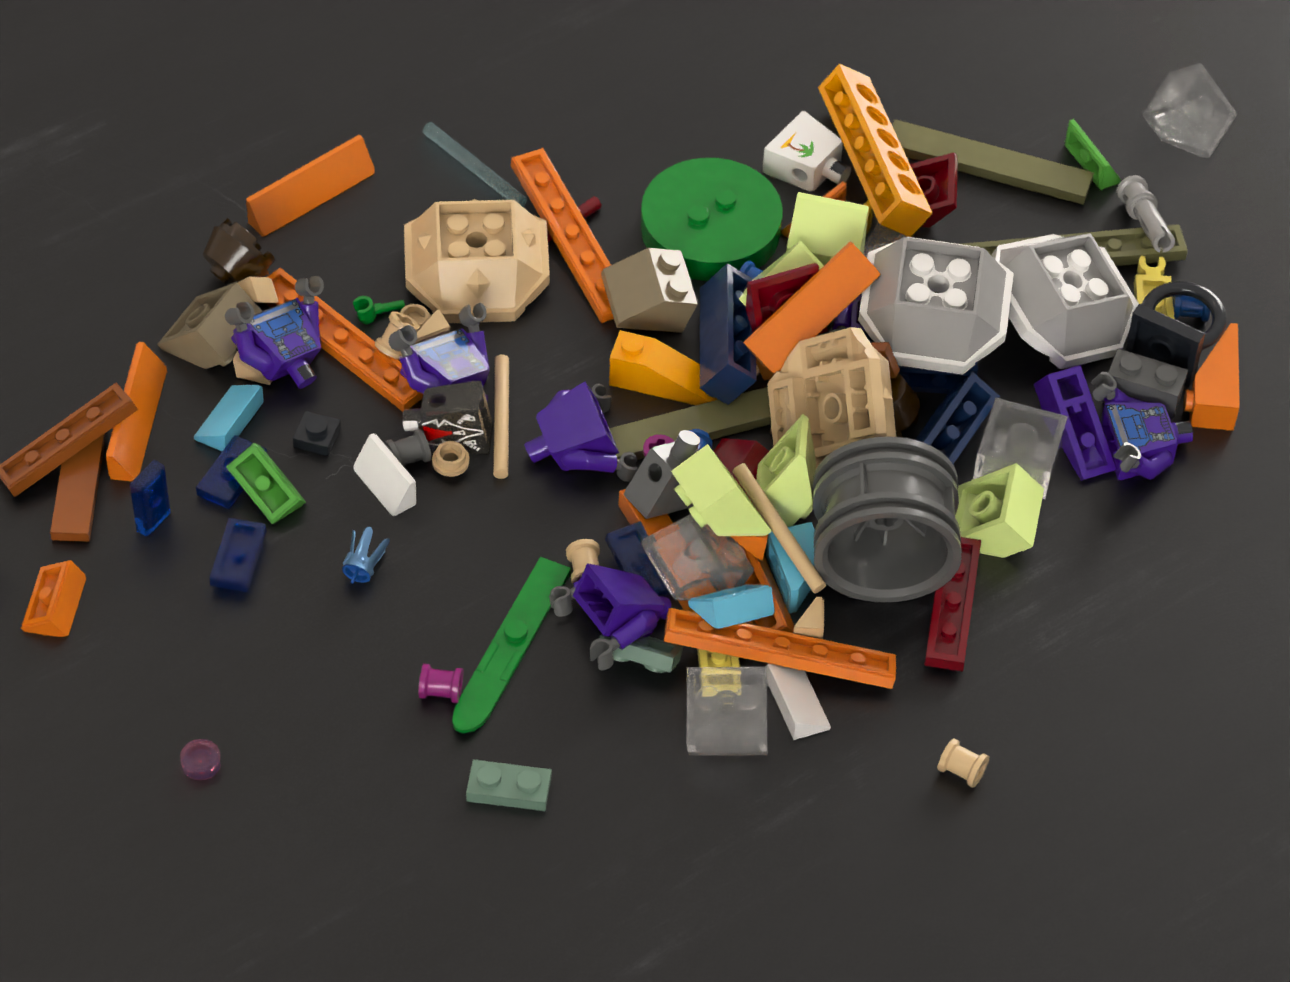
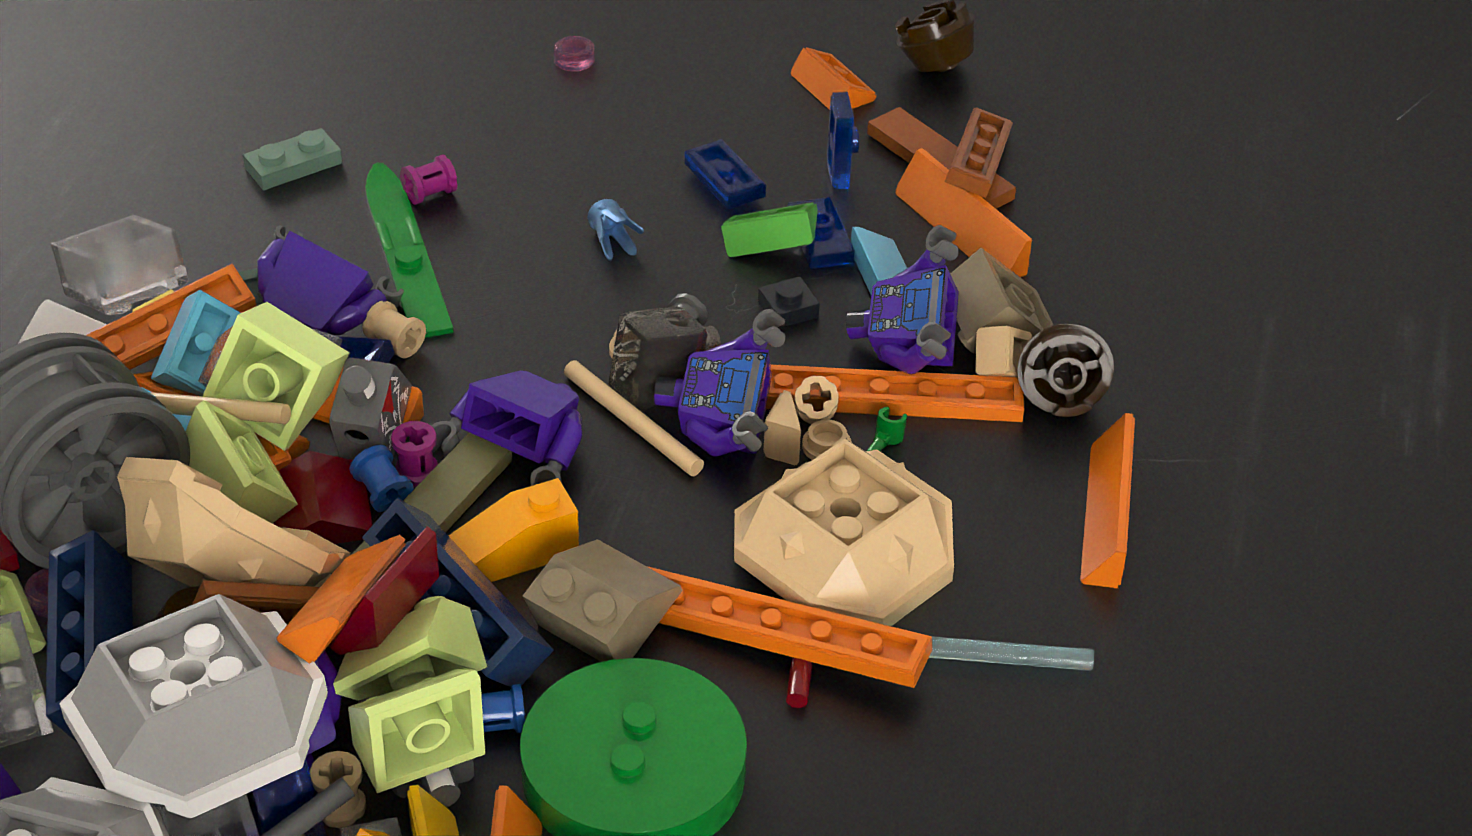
camera: 140 degrees right, 10 degrees down
(385, 476) = (655, 291): white slope -> none

